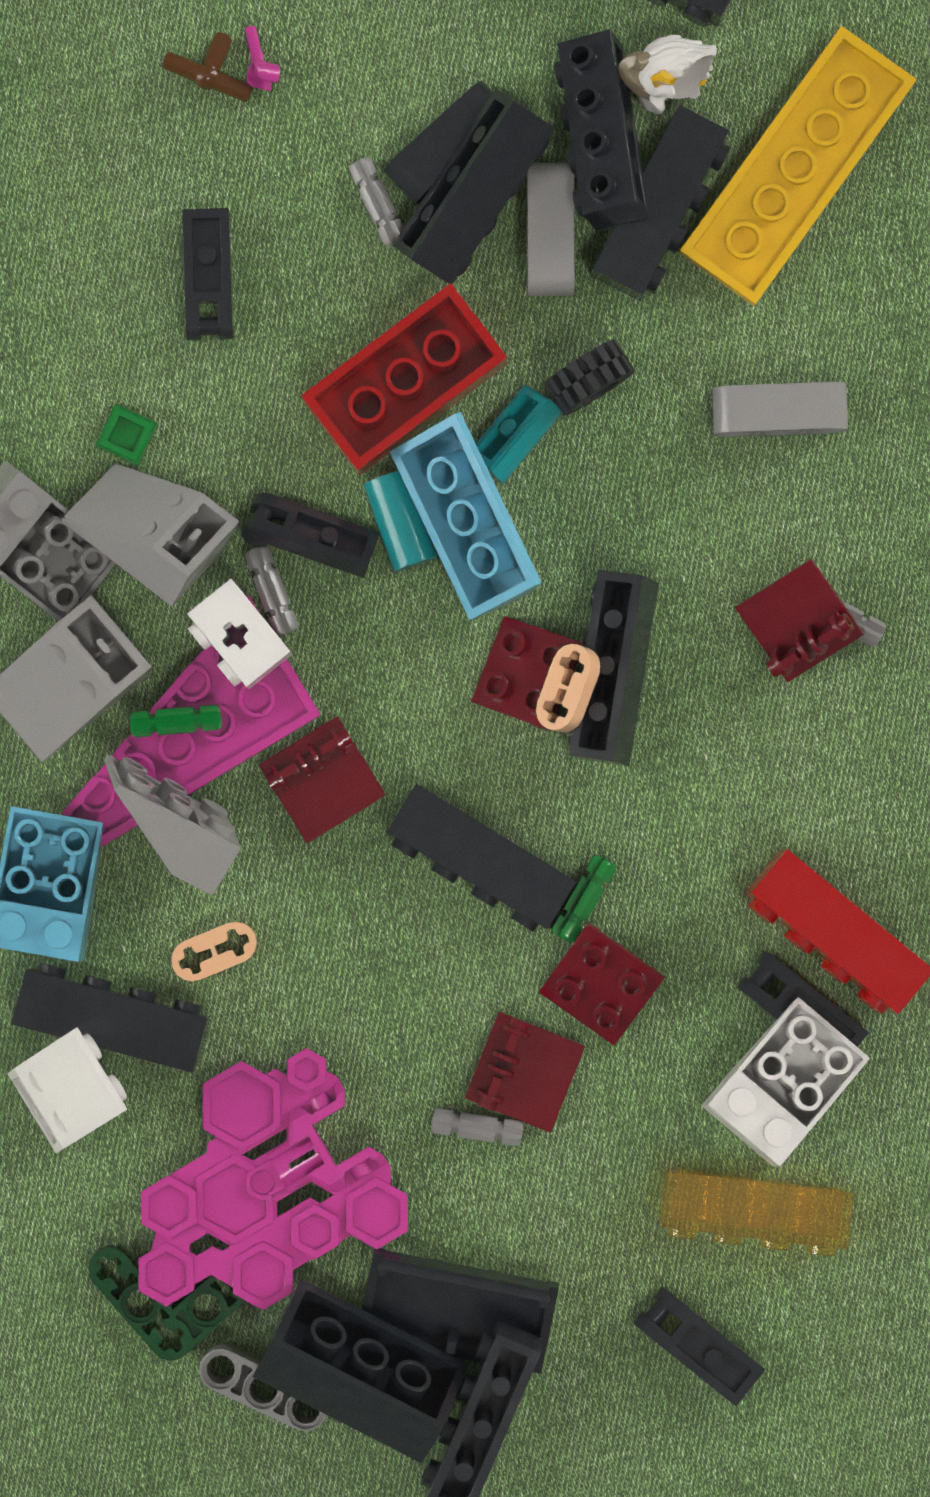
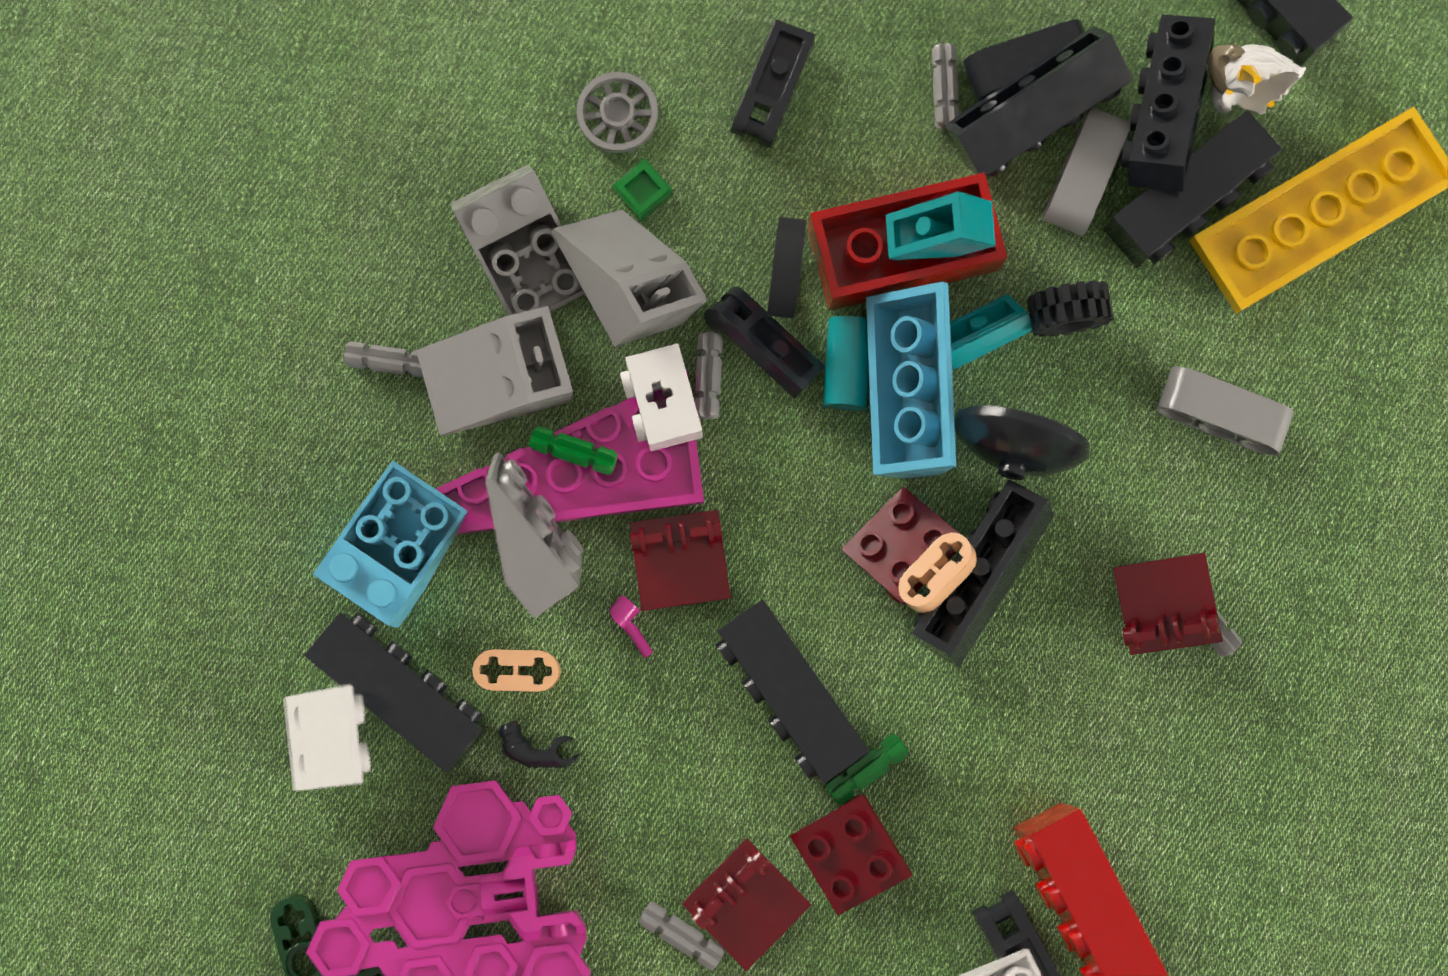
camera: 20 degrees right, 5 degrees down
(67, 368) = (617, 112): none -> light grey wheel
(252, 1023) = (522, 751): none -> black piece
(291, 852) = (623, 613): none -> dark pink hand
(301, 457) = (786, 267): none -> black tyre
(431, 361) = (941, 228): none -> teal slope
(593, 533) = (1020, 441): none -> black dish

